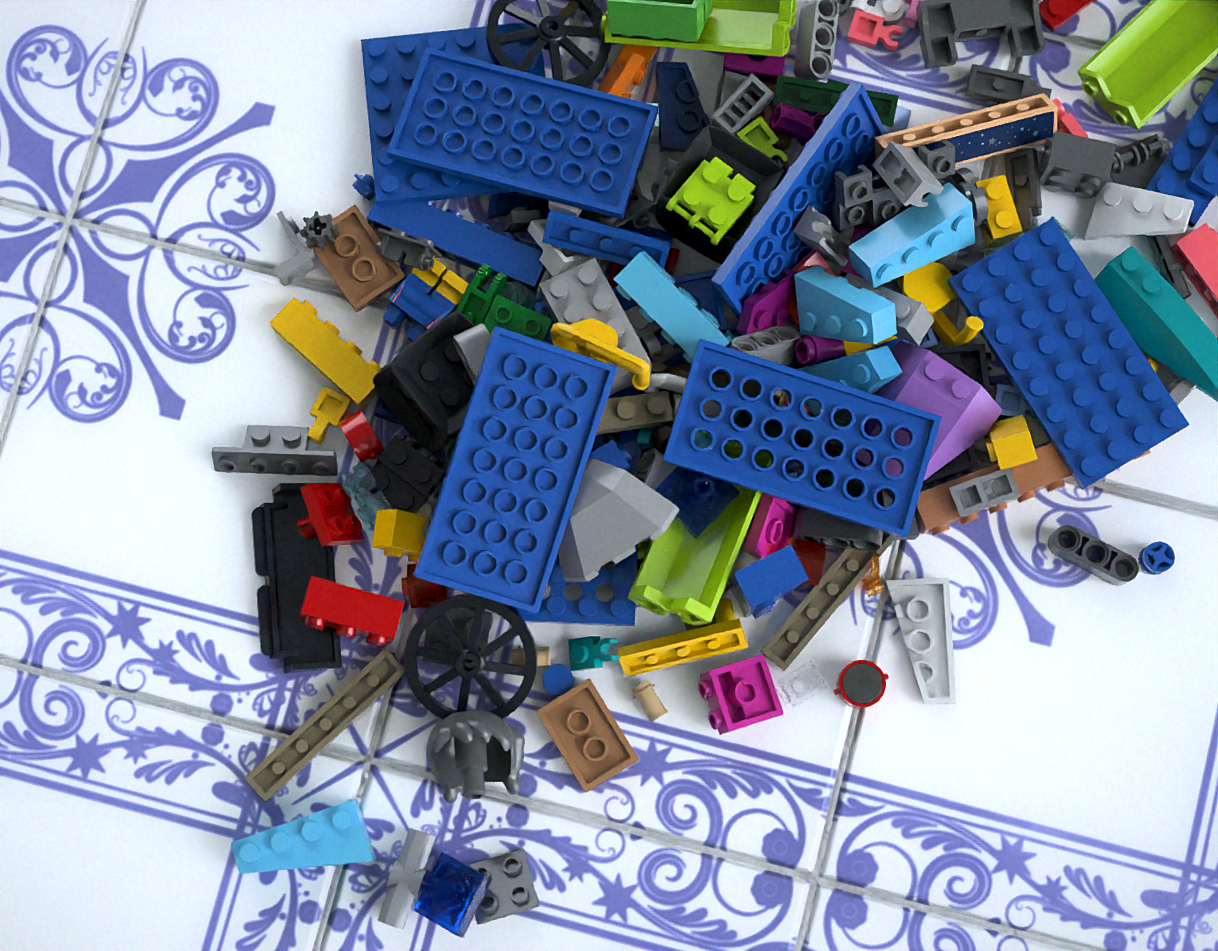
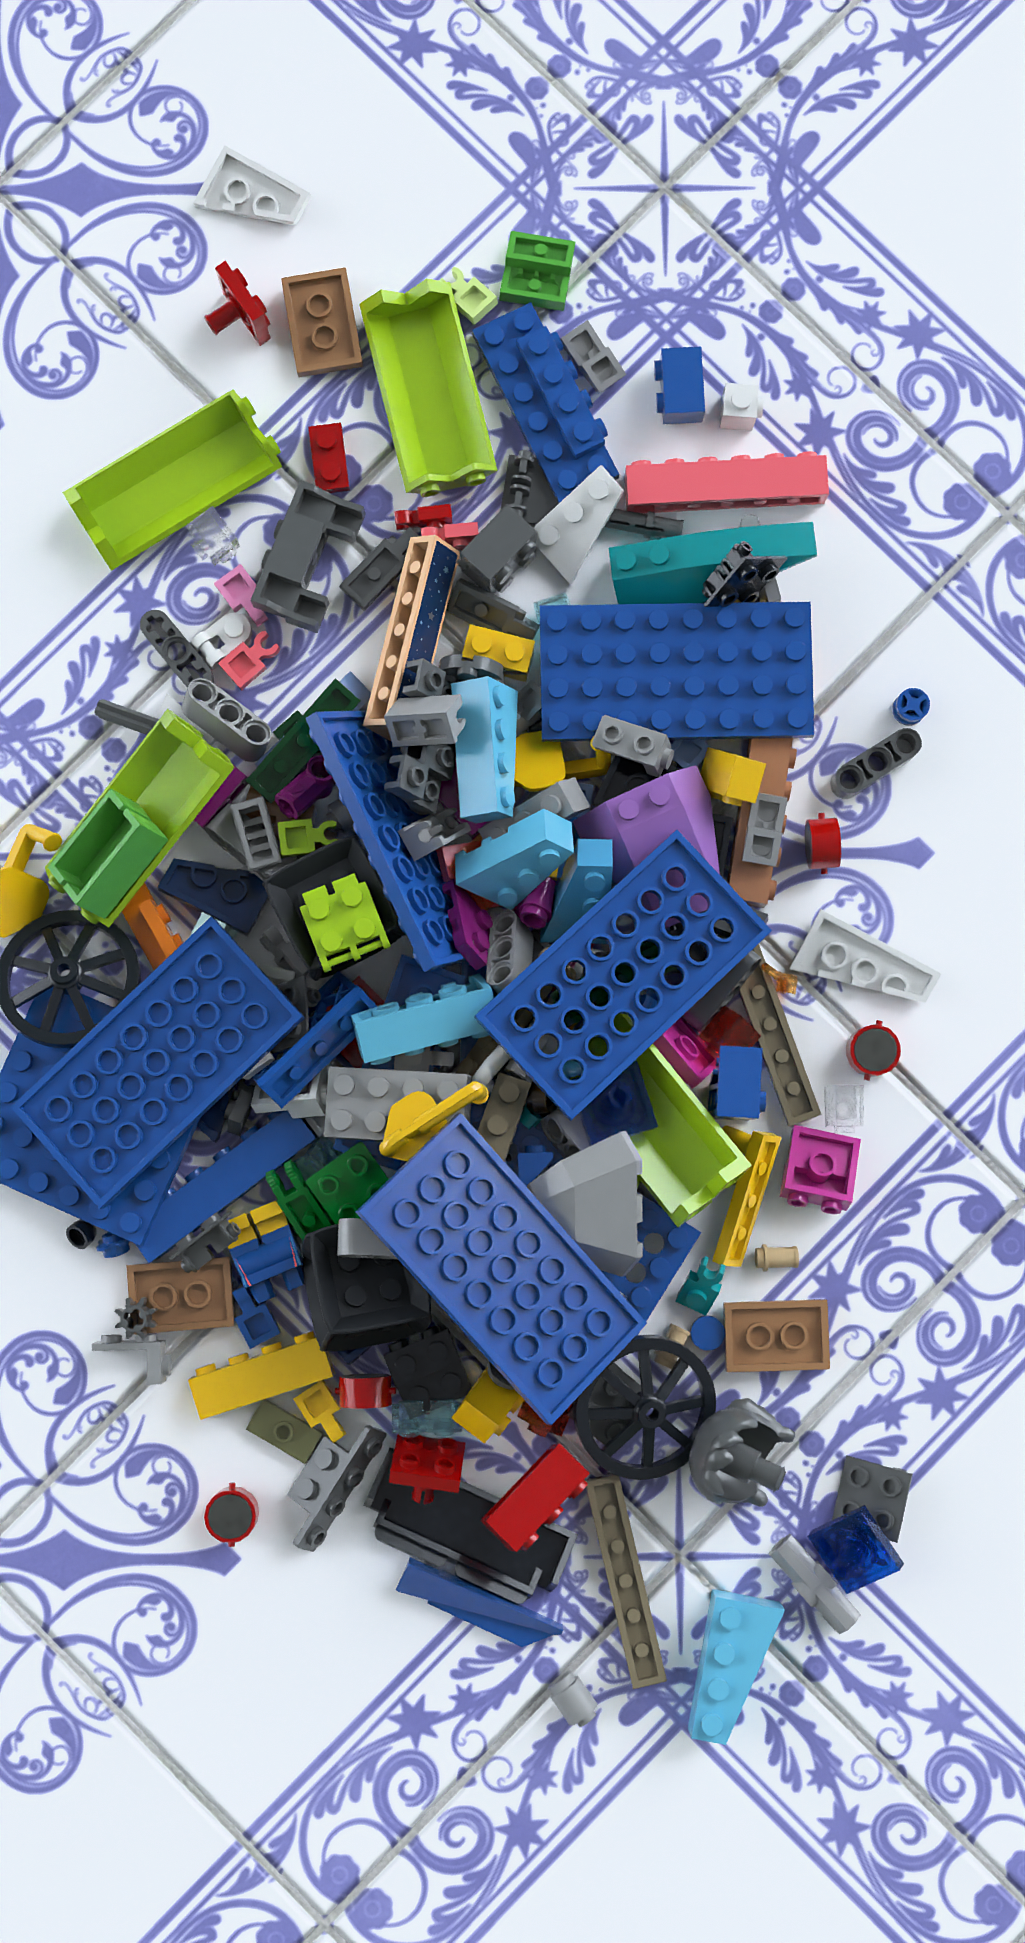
camera: 65 degrees left, 5 degrees up
(209, 391) = (231, 1514): none -> pearl dark grey piece
(210, 735) = (573, 1699): none -> light grey brick
(242, 616) = (476, 1605): none -> blue wedge
(295, 395) = (284, 1430): none -> olive plate
(360, 158) = (81, 1234): none -> black hinge
(367, 325) = (256, 1321): none -> blue plate
(990, 350) = (634, 743): none -> light grey bracket
(1002, 547) = (822, 843): none -> red piece
(1067, 95) = (424, 517): none -> red plate
(1174, 357) = (740, 576): none -> black hinge

